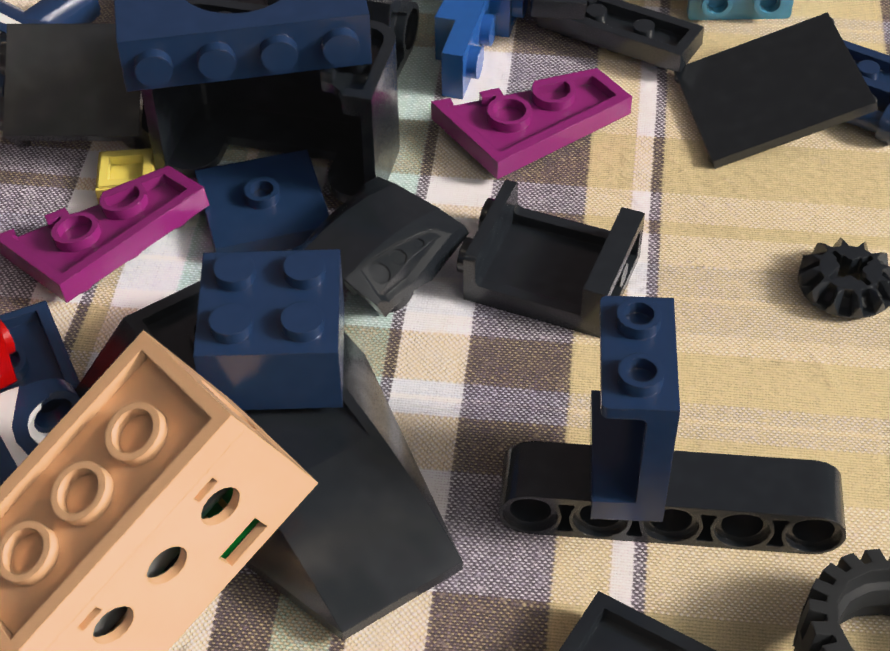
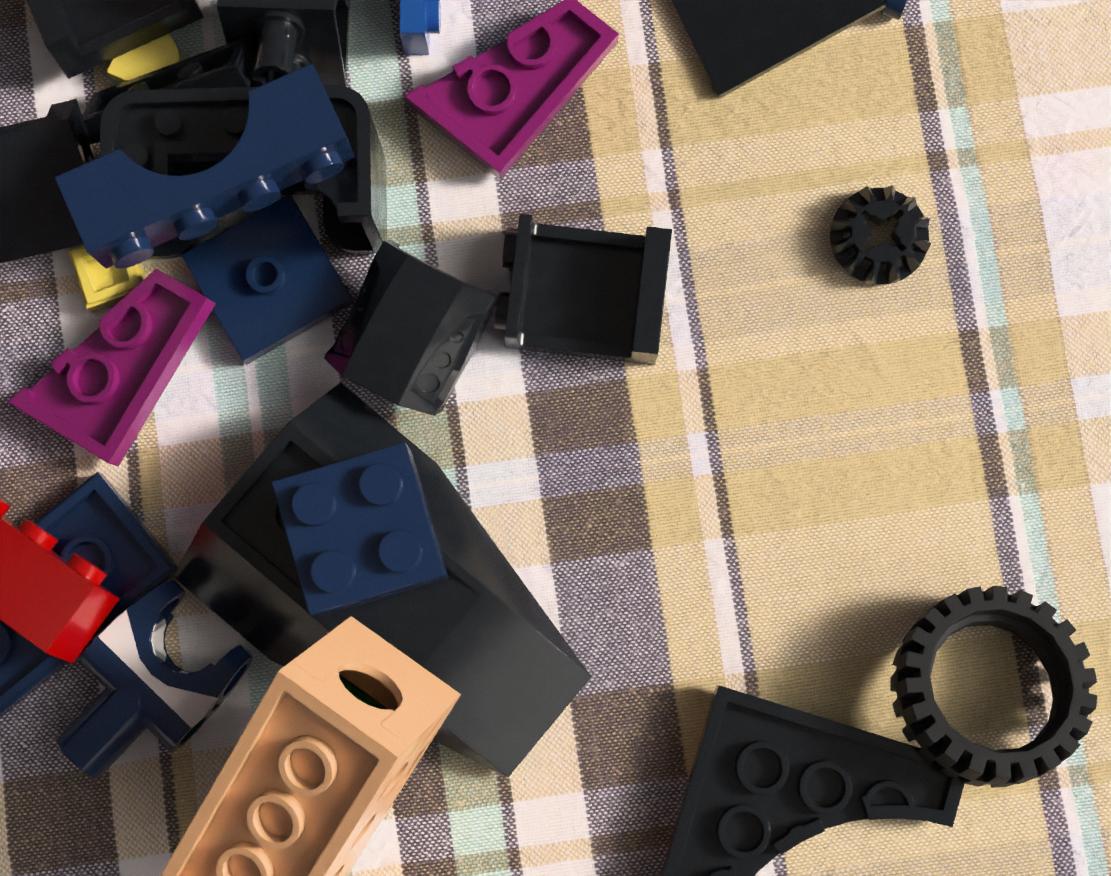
camera: 15 degrees left, 35 degrees up
(635, 410) = (726, 545): dark blue panel -> none
(708, 502) = (759, 560): black beam -> none

